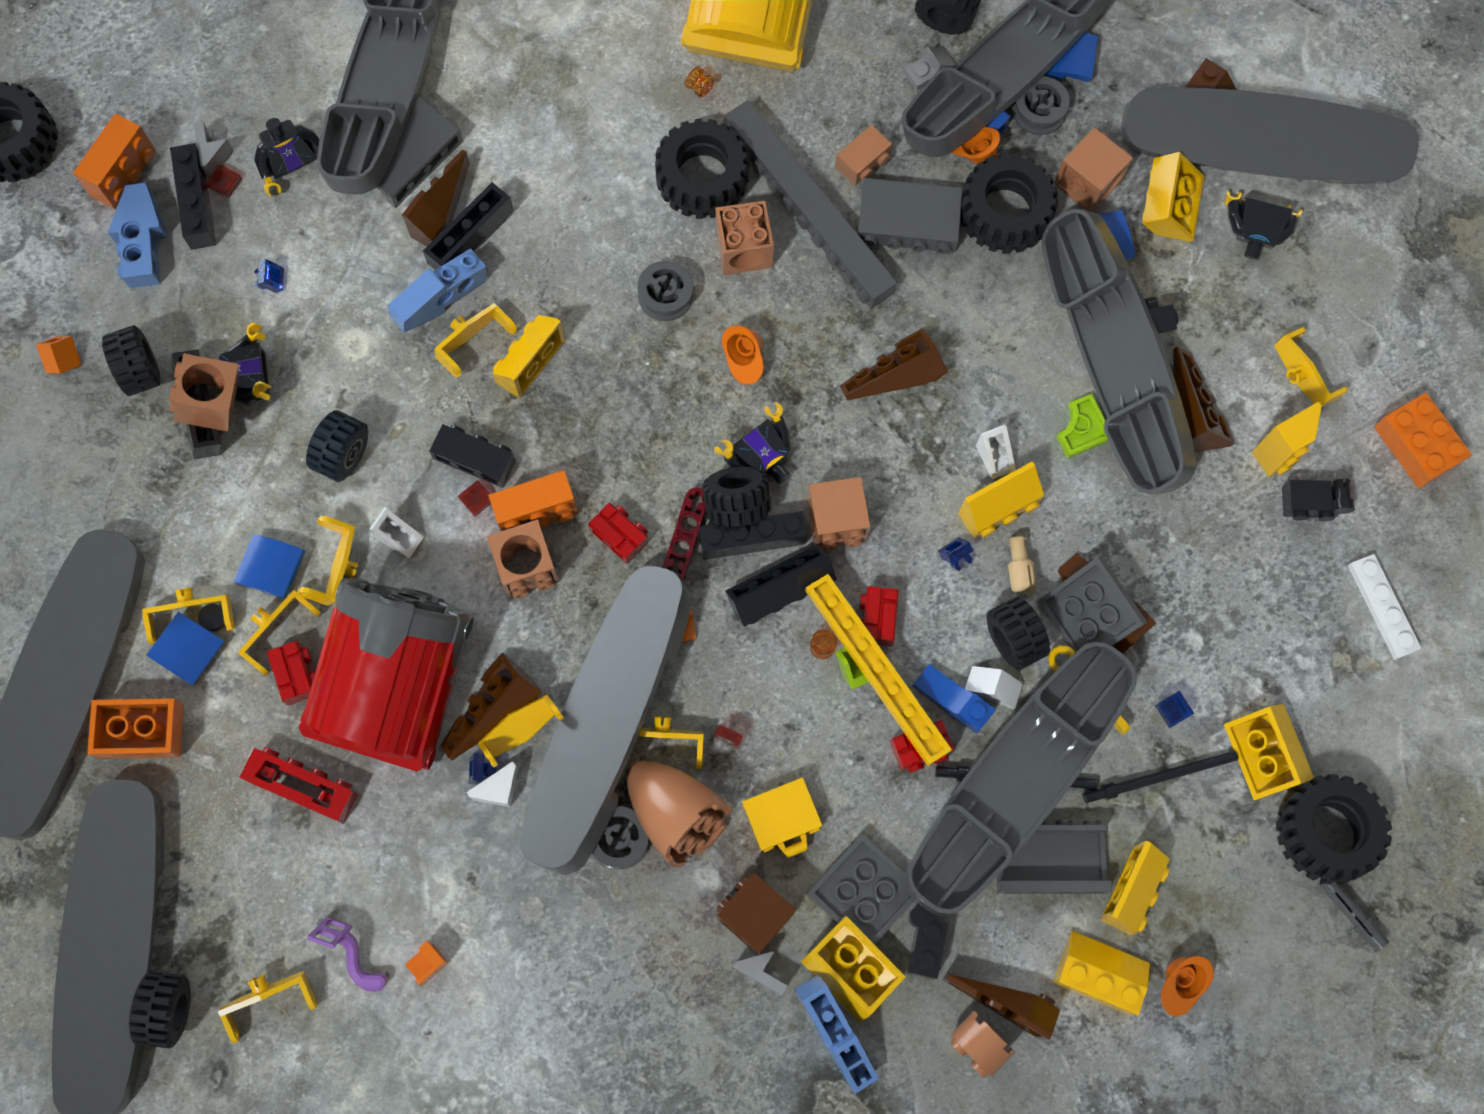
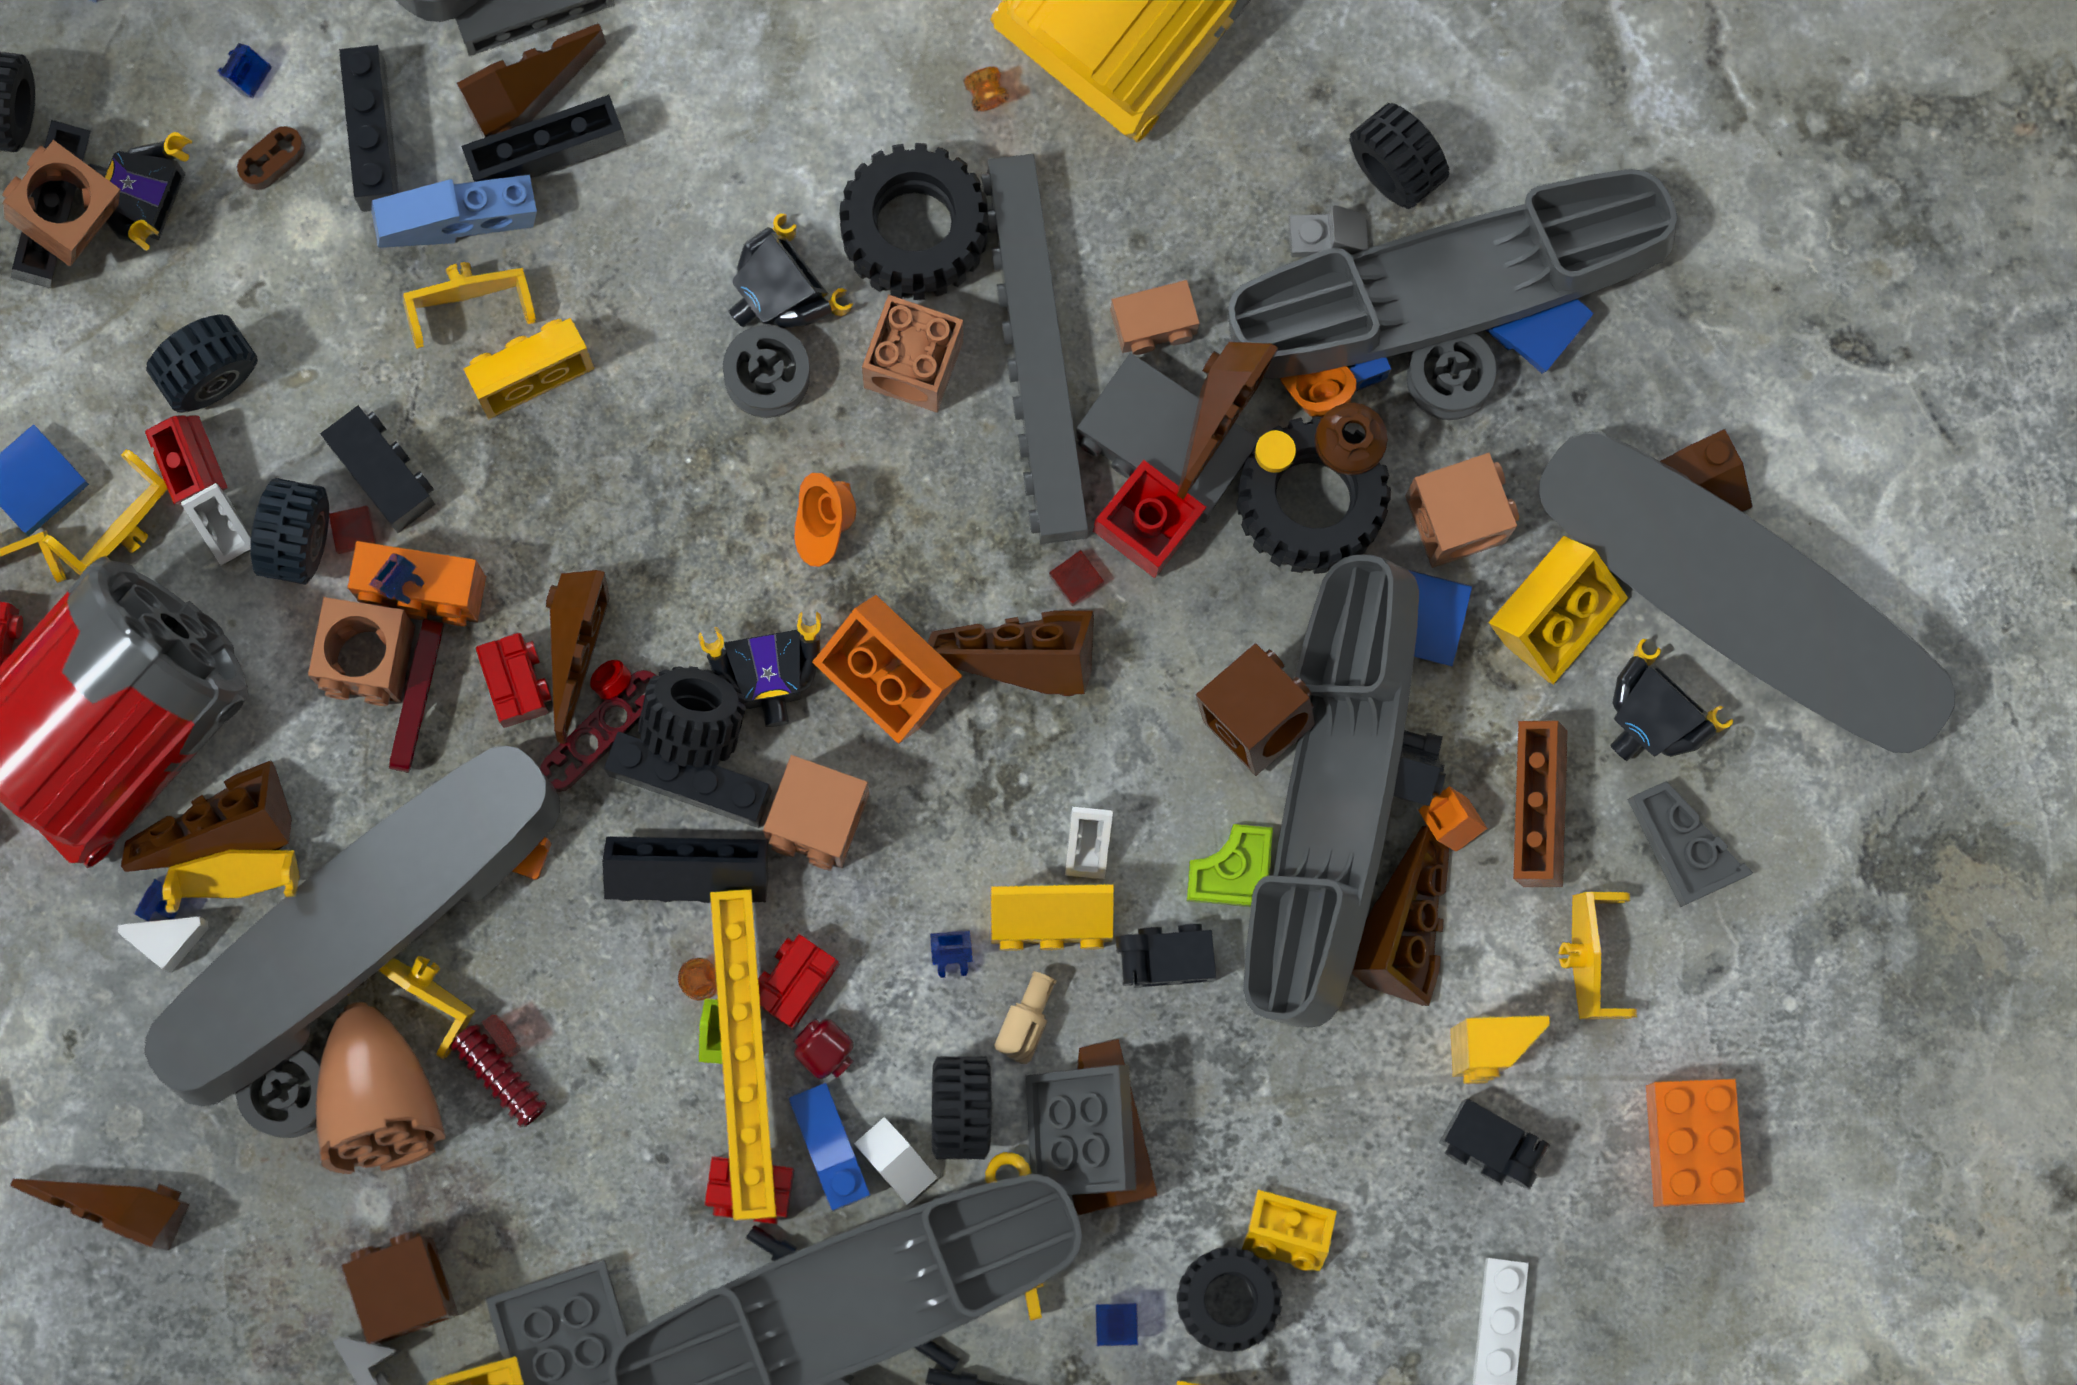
camera: 25 degrees right, 5 degrees up
(317, 318) = (265, 152): none -> reddish brown beam
(354, 504) = (184, 456): none -> red brick
(359, 269) = (368, 124): none -> black brick
(442, 513) = (289, 531): none -> black wheel
(522, 501) = (393, 576): none -> clear blue tile
(565, 957) = (131, 1211): none -> reddish brown wedge
(567, 571) = (416, 696): none -> dark red beam
(636, 483) = (575, 622): none -> reddish brown wedge
(646, 239) = (779, 283): none -> black torso
(674, 503) = (610, 679): none -> red tile
(739, 761) = (498, 1075): none -> dark red piece
(782, 816) = (511, 1180): yellow piece -> none
(831, 414) = (887, 669): none -> orange brick
(902, 316) = (1076, 578): none -> clear red tile
(917, 644) = (823, 1048): none -> dark red head
(926, 261) = (1148, 519): none -> red slope
(932, 174) = (1224, 395): none -> reddish brown wedge
(979, 184) = (1275, 451): none -> yellow tile
(1012, 166) = (1347, 457): none -> reddish brown piece
(1048, 329) = (1256, 708): none -> reddish brown brick
(1080, 491) = (1167, 958): none -> black hinge
(1187, 336) = (1452, 819): none -> orange panel
(1230, 303) = (1540, 804): none -> dark orange brick
(1236, 606) = (1289, 1231): none -> yellow bracket
(1244, 649) = (1265, 1299): none -> black tyre
(1317, 289) = (1686, 850): none -> dark grey wing

